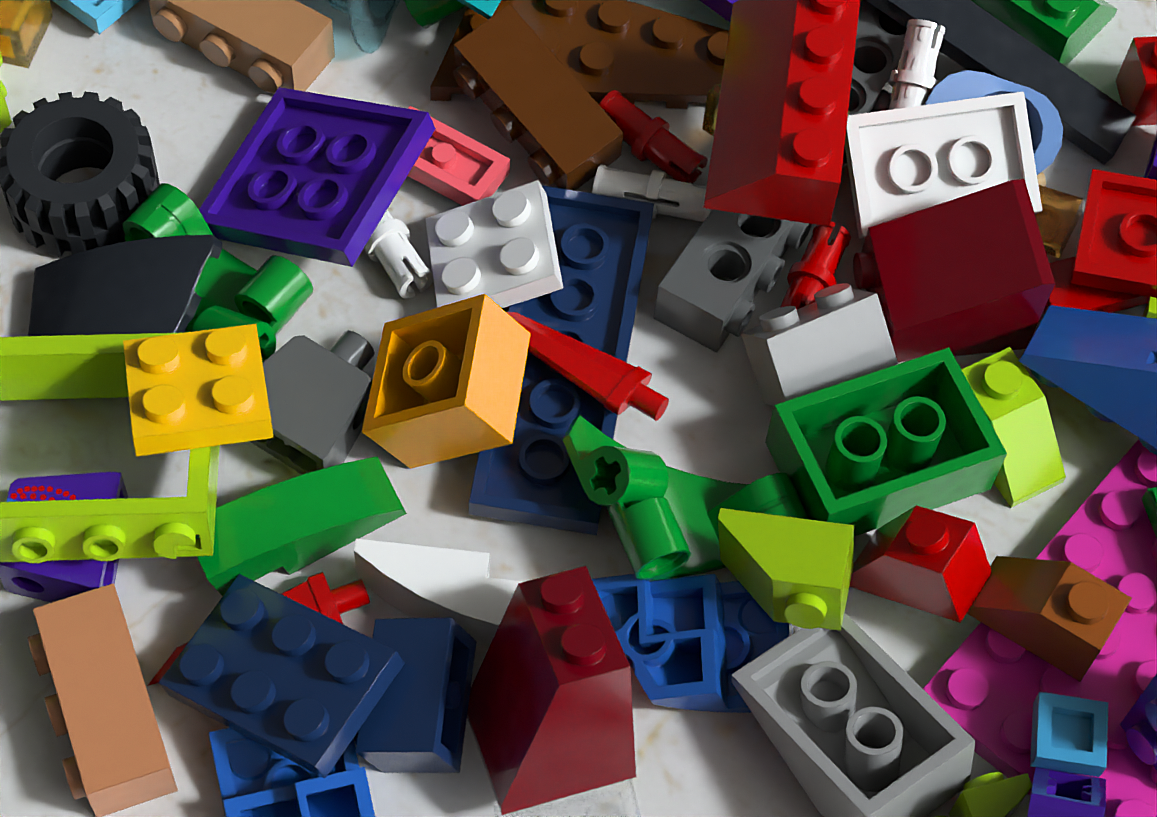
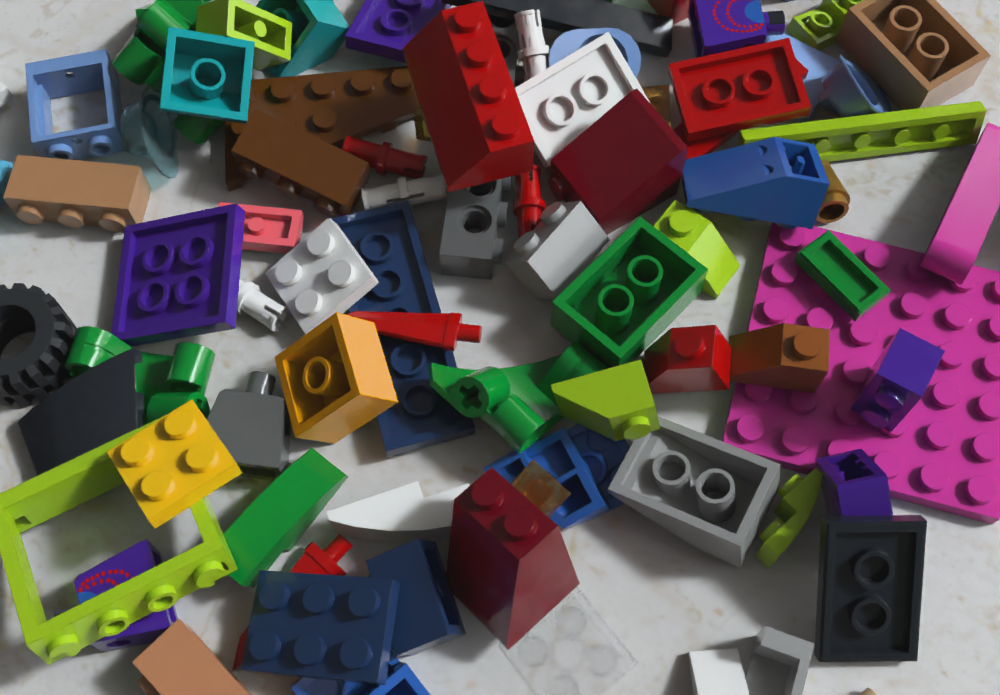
camera: 20 degrees left, 5 degrees up
(642, 633) = (541, 488): none -> clear orange plate
(1069, 734) = (828, 431): dark azure plate -> none

